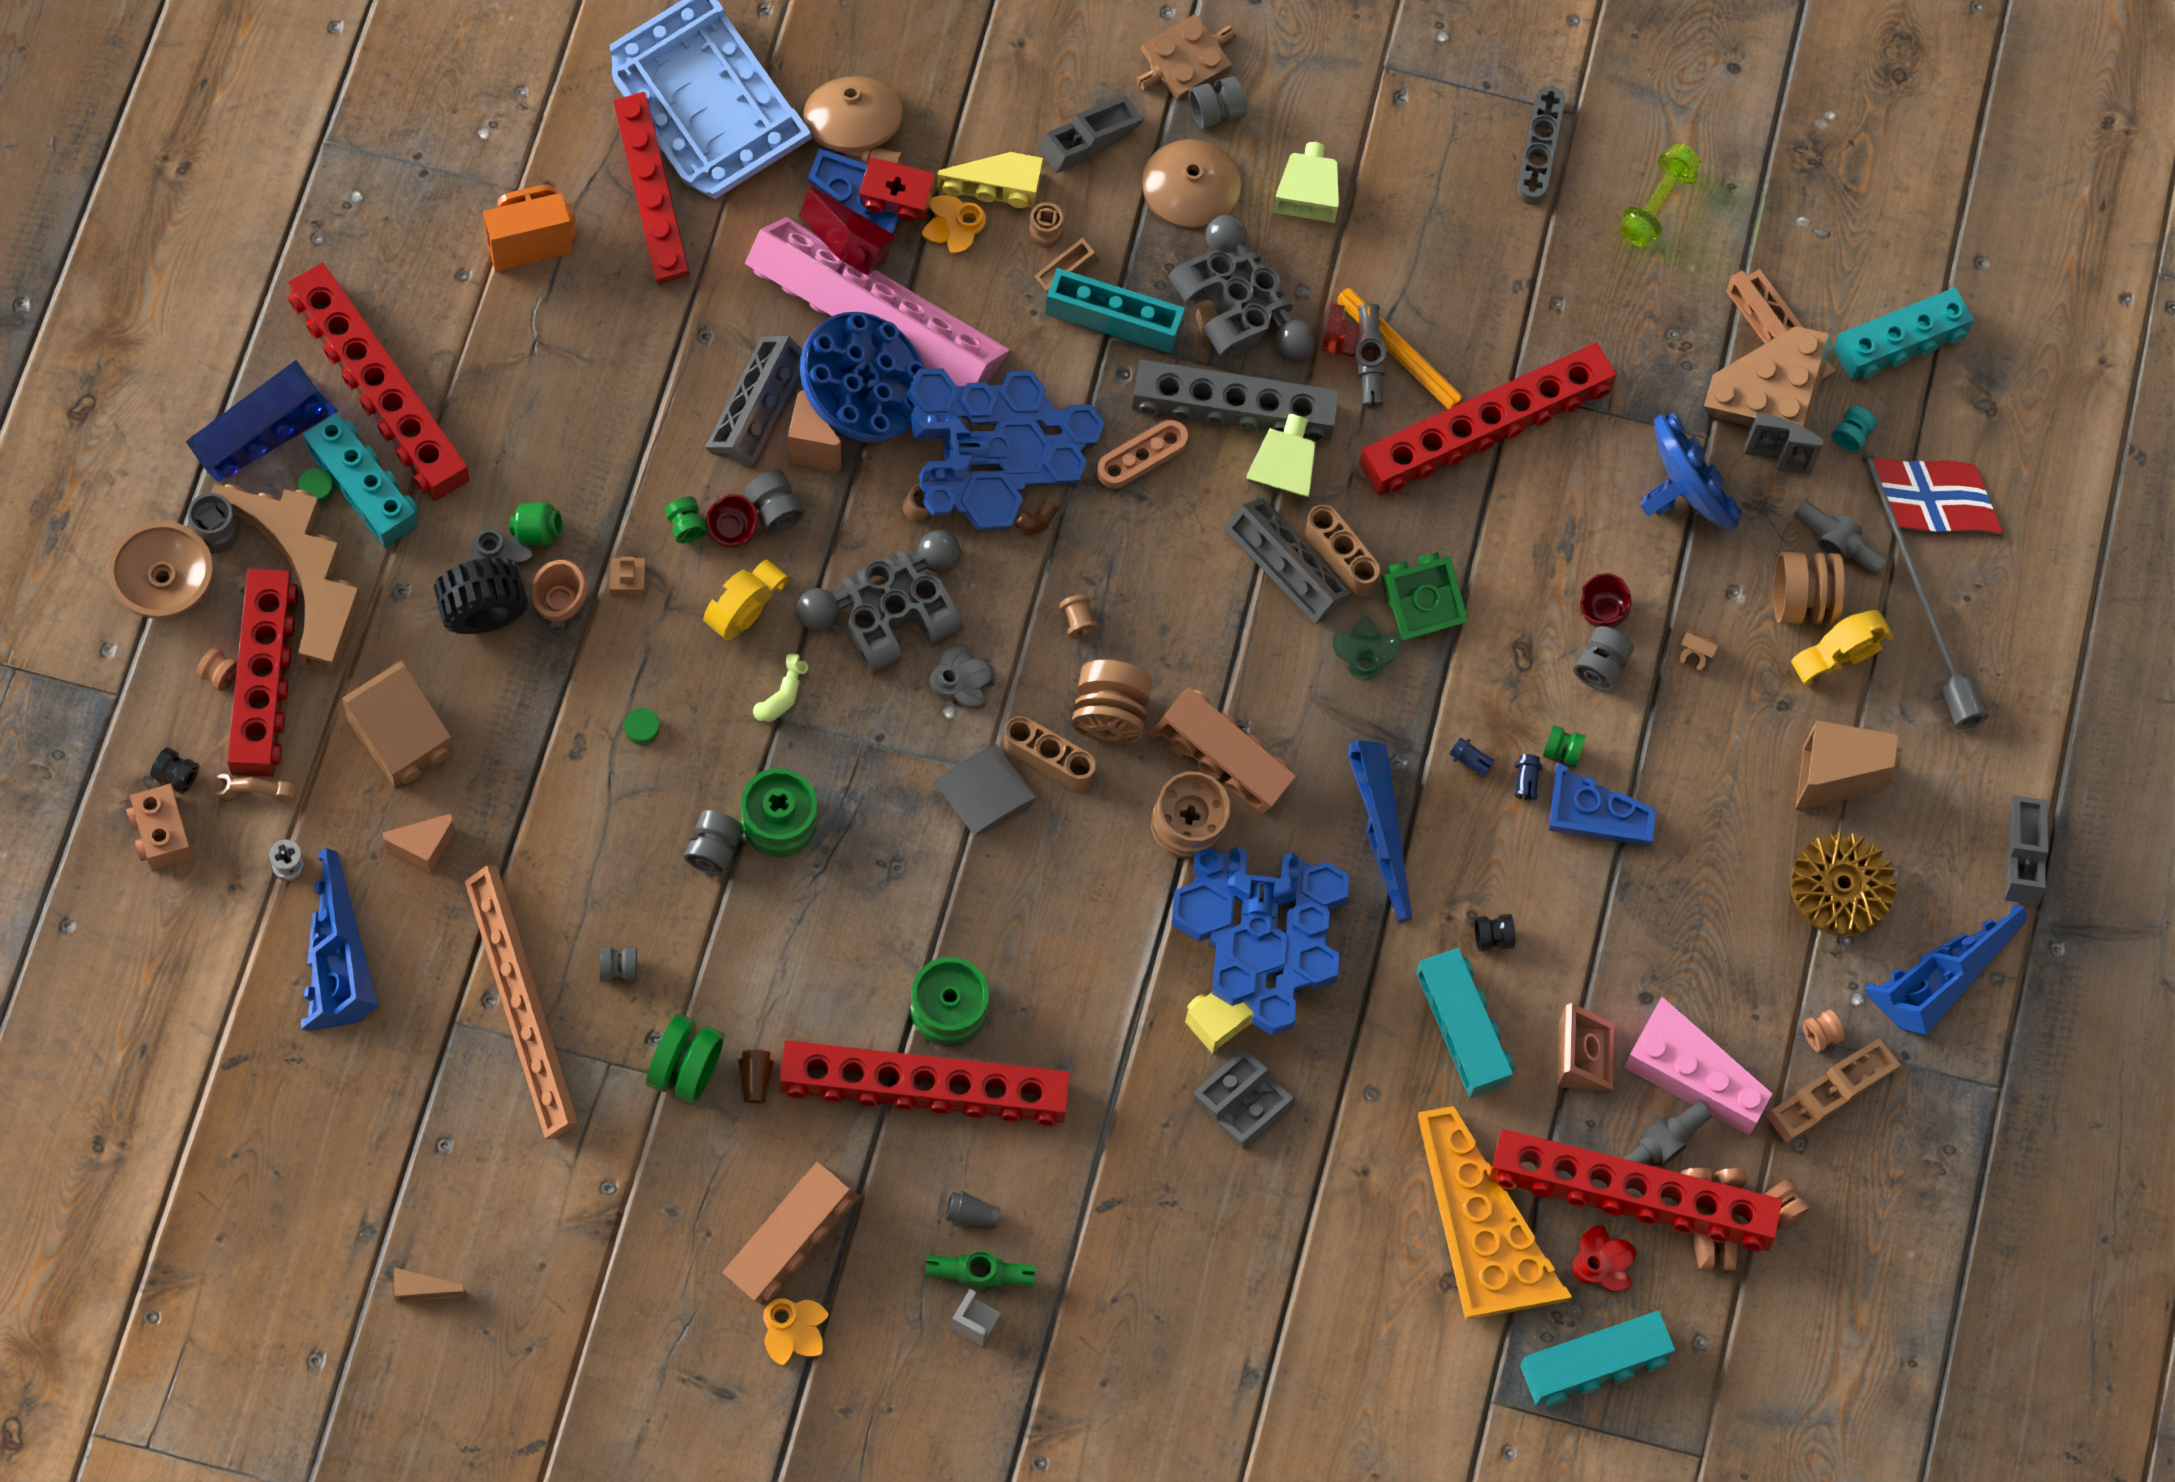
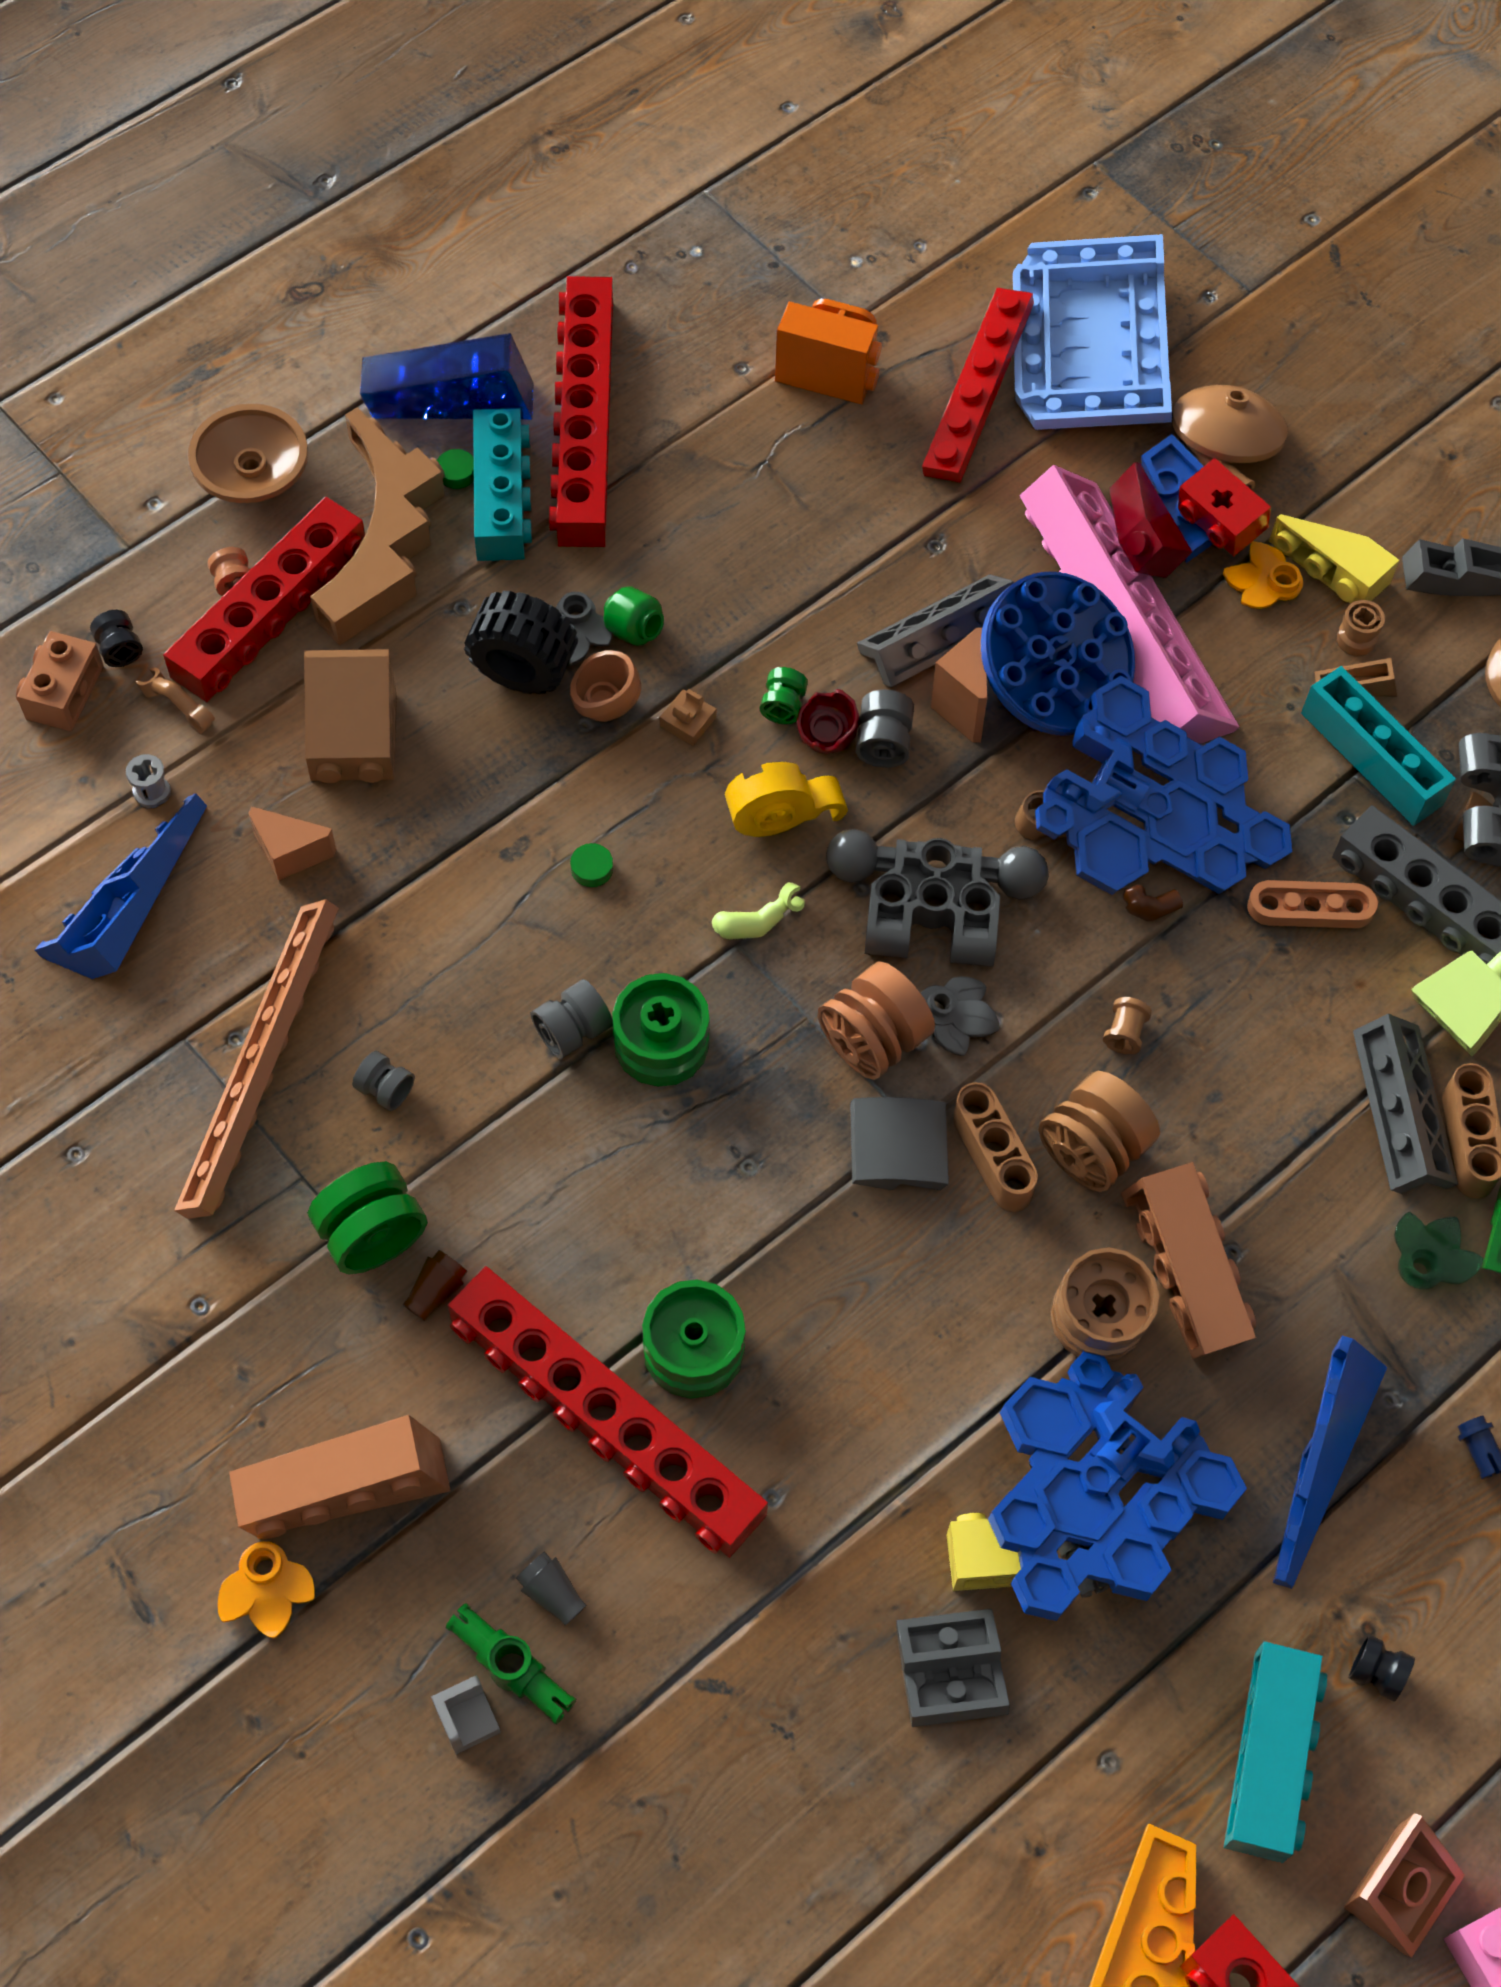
camera: 40 degrees right, 5 degrees down
(213, 521) = (331, 442): dark grey wheel -> none
(918, 716) = (876, 1020): none -> nougat wheel

